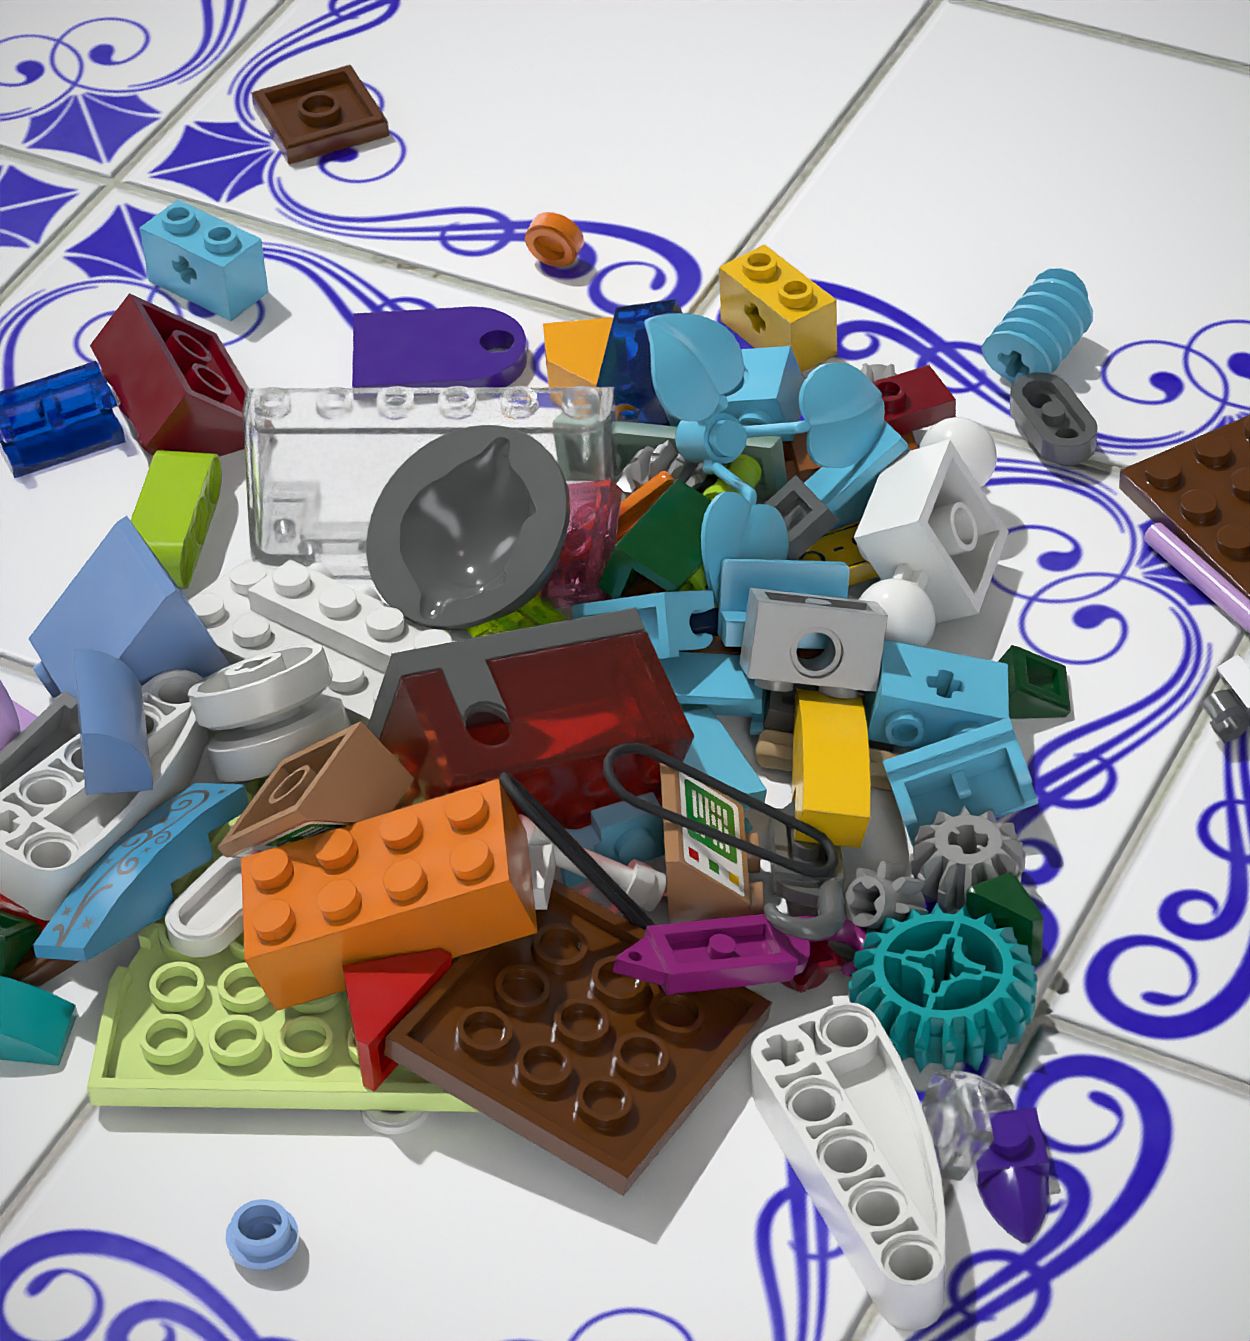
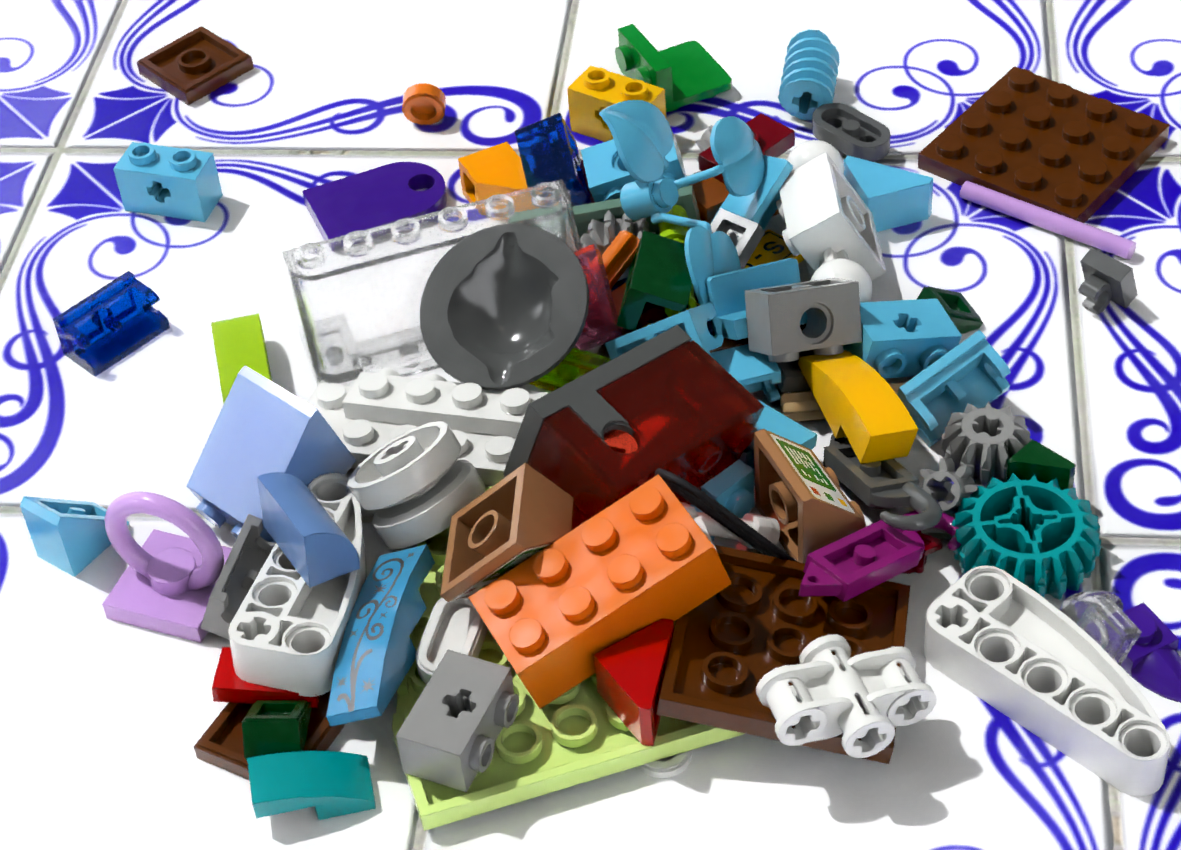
camera: 20 degrees left, 0 degrees up
(169, 993) = (457, 721): none -> light grey brick
(172, 380) = (193, 273): dark red slope -> none
(595, 1100) = (845, 696): none -> white axle
(622, 793) = (818, 440): black piece -> none
(877, 281) = (682, 70): none -> green bracket
(1045, 514) = (890, 193): none -> medium azure slope

